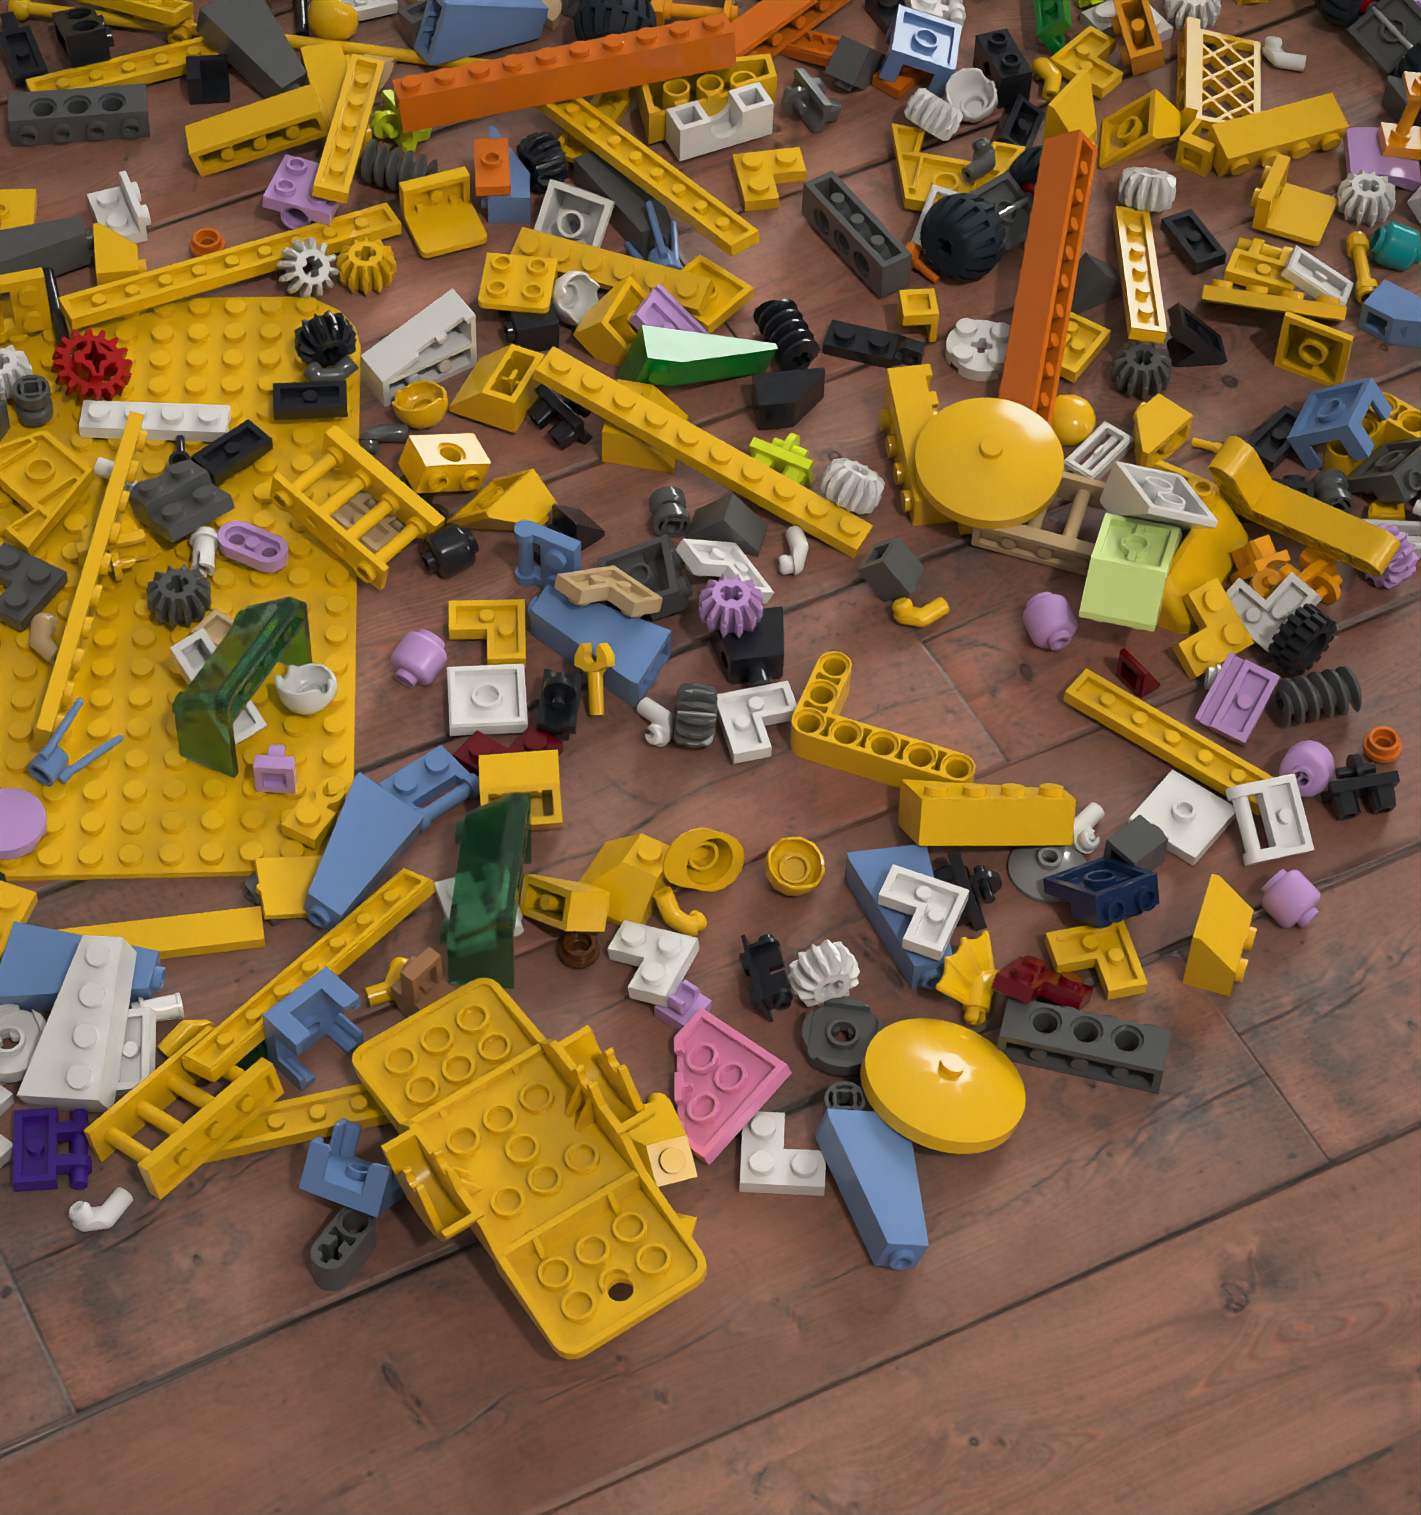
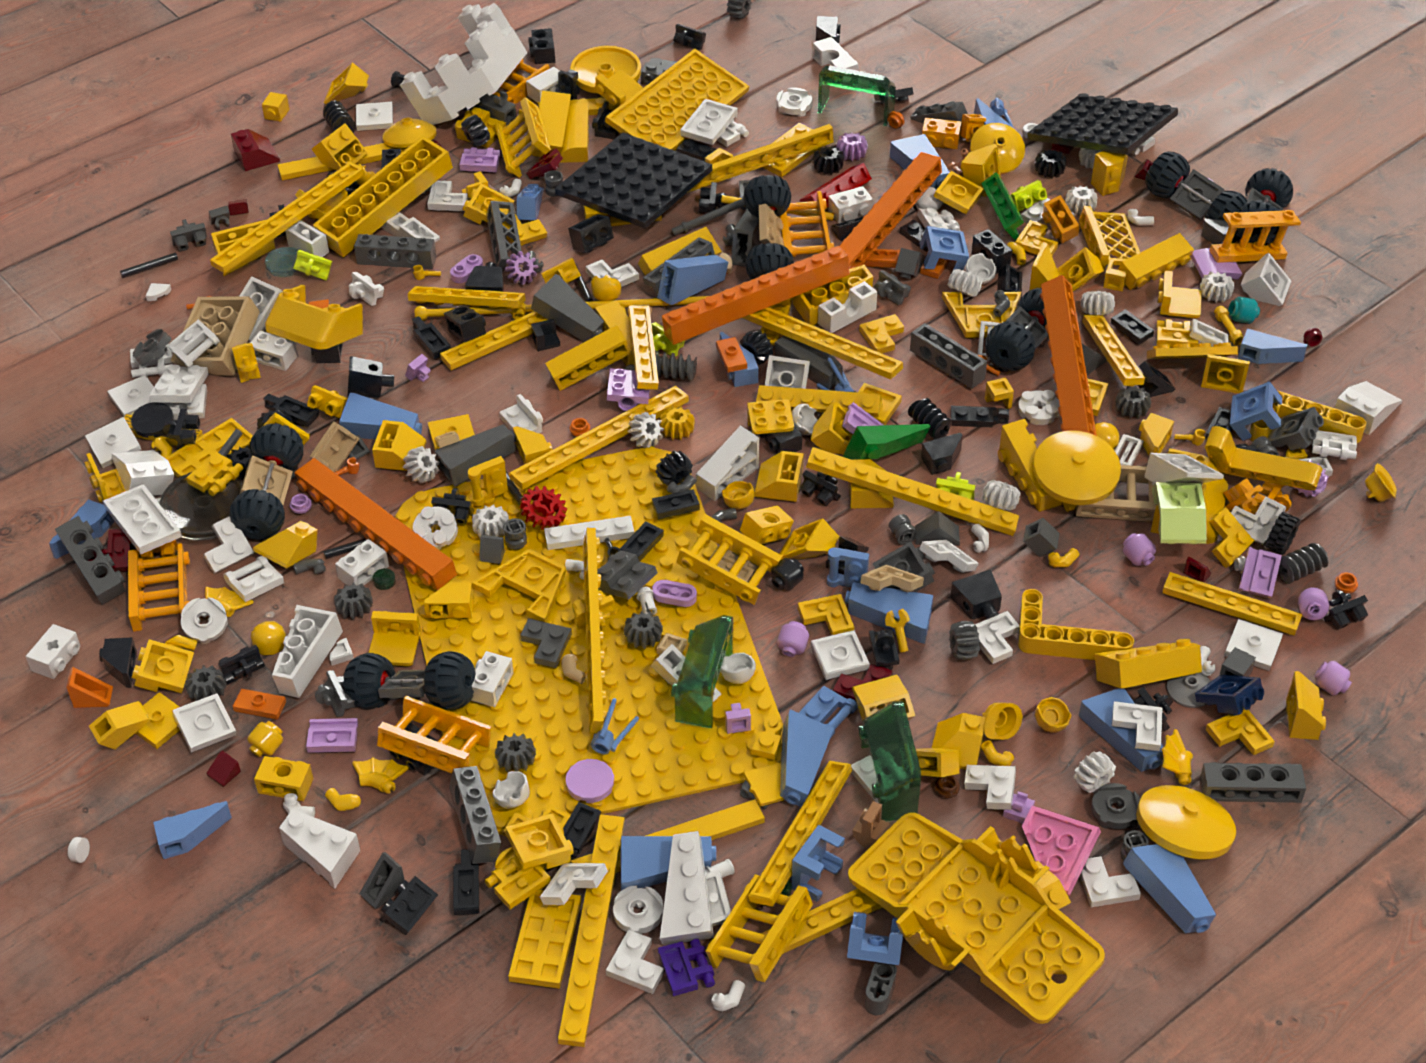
camera: 10 degrees left, 5 degrees down
(78, 115) = (478, 368): dark grey brick -> none
(182, 1034) = (738, 883): yellow arm -> none
(381, 992) = (850, 821): yellow arm -> none
(441, 213) = (708, 387): yellow bracket -> none
(660, 719) = (944, 648): white arm -> none
(730, 605) = (964, 574): lavender gear -> none
(768, 989) = (1065, 788): black hinge -> none
(1030, 978) = (1211, 753): dark red plate -> none
(1281, 816) = (1310, 632): white plate -> none

